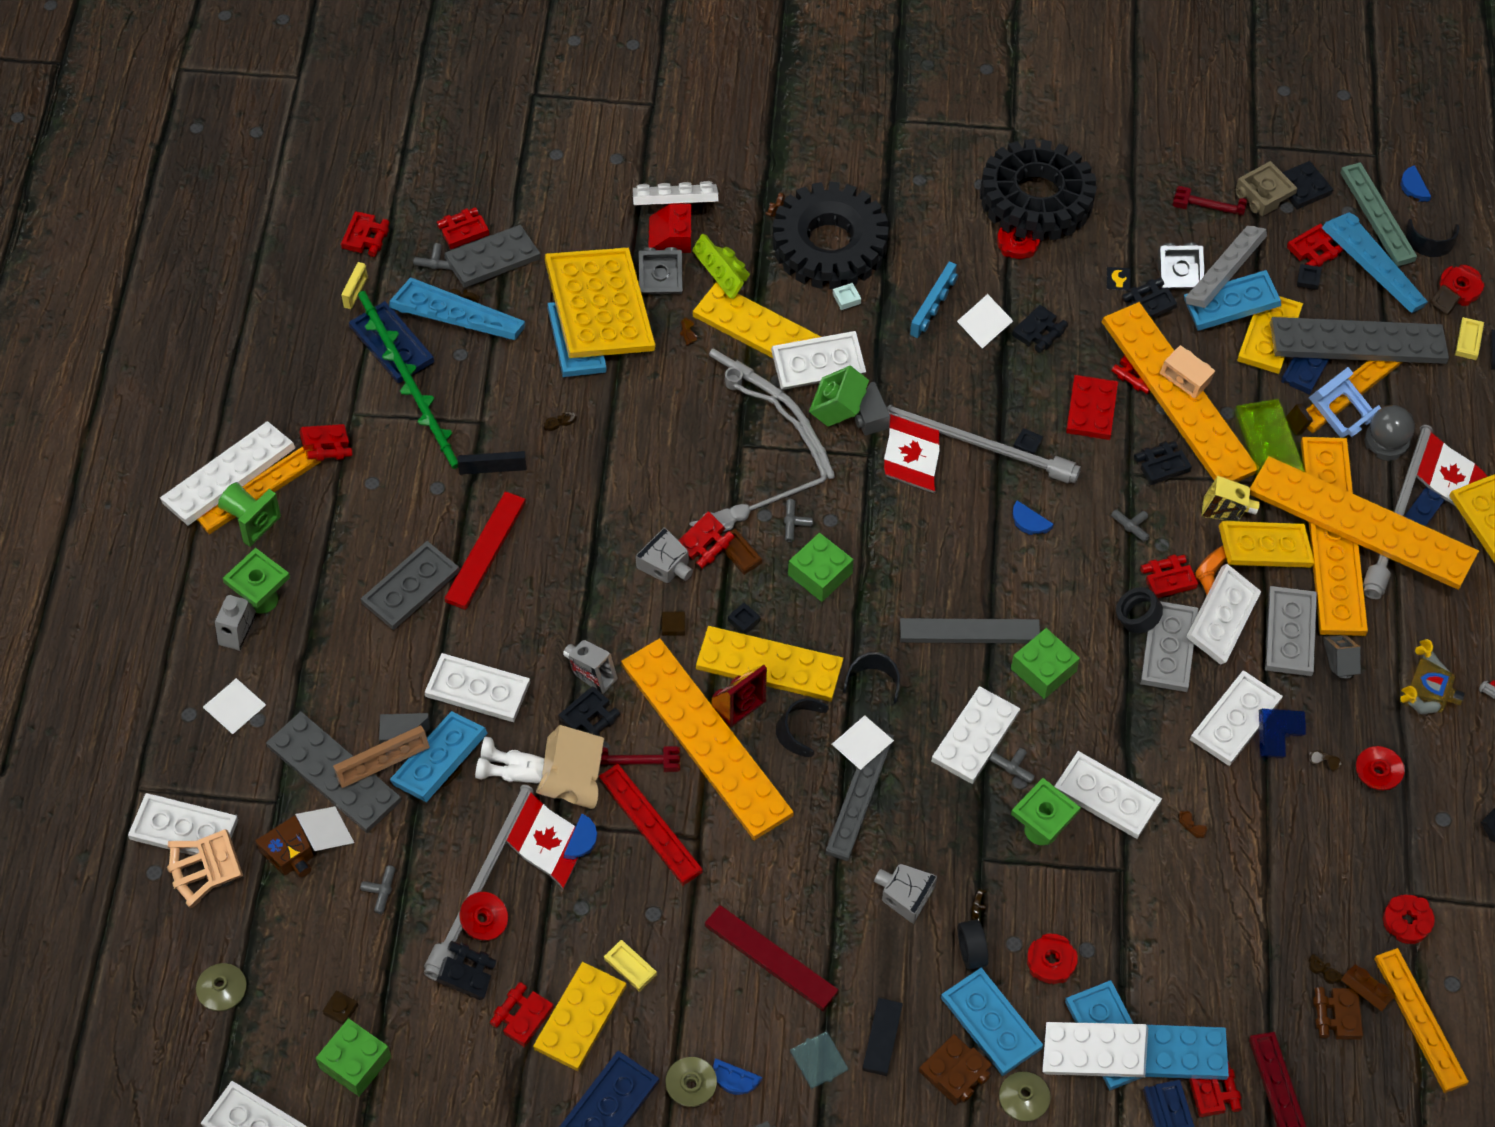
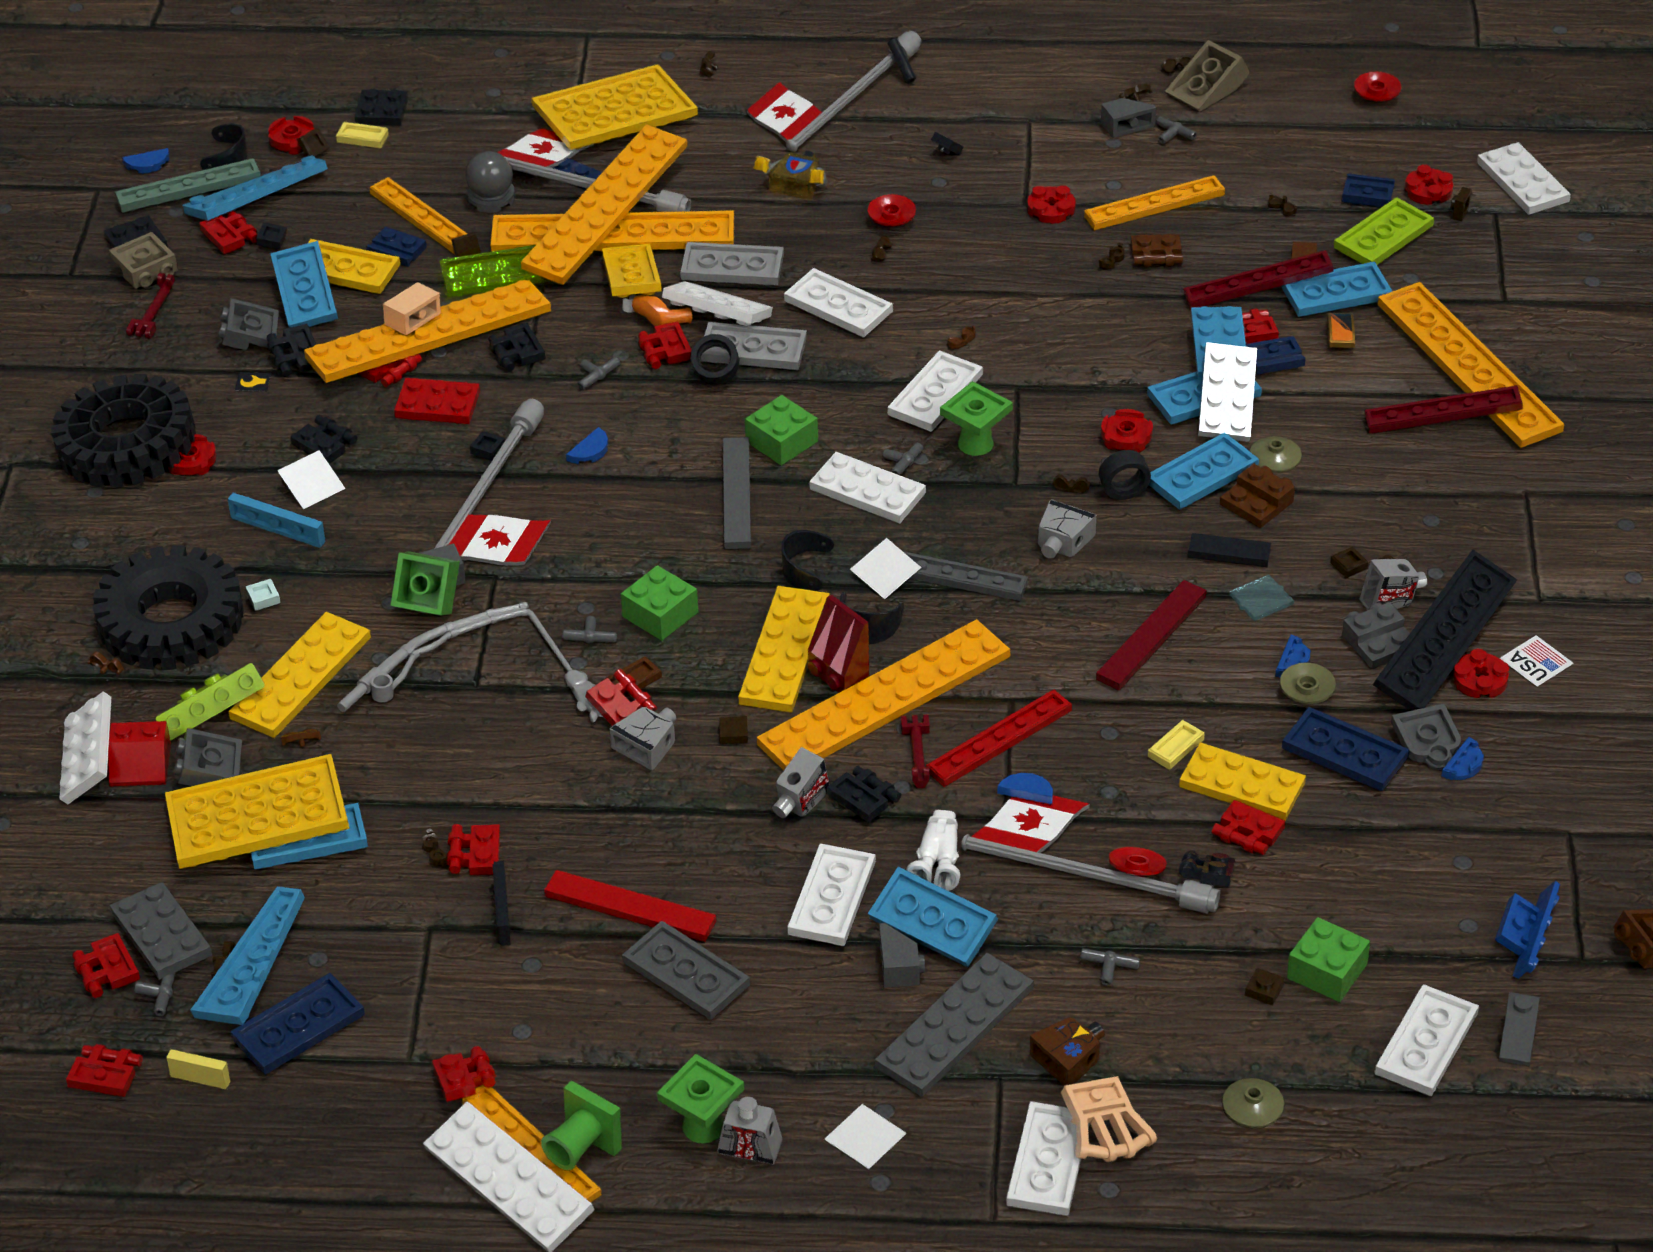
camera: 90 degrees left, 15 degrees down
(324, 828) = (1038, 1017): white sticker -> none
(381, 756) = (964, 984): medium nougat plate -> none
(410, 386) = (380, 989): green plant -> none
(556, 453) = (483, 845): none -> red plate
(571, 766) = (944, 790): tan piece -> none
(744, 618) = (728, 667): black plate -> none
(811, 359) = (365, 609): white plate -> none
(1226, 266) = (255, 289): light grey plate -> none
(1228, 500) = (574, 289): light yellow torso -> none
(1274, 726) = (846, 271): clear blue tile -> none
(1334, 388) = (440, 214): light blue window -> none
(1343, 655) = (762, 227): dark grey slope -> none
(1359, 340) = (365, 201): dark grey plate -> none
(1368, 987) = (1125, 230): reddish brown plate -> none

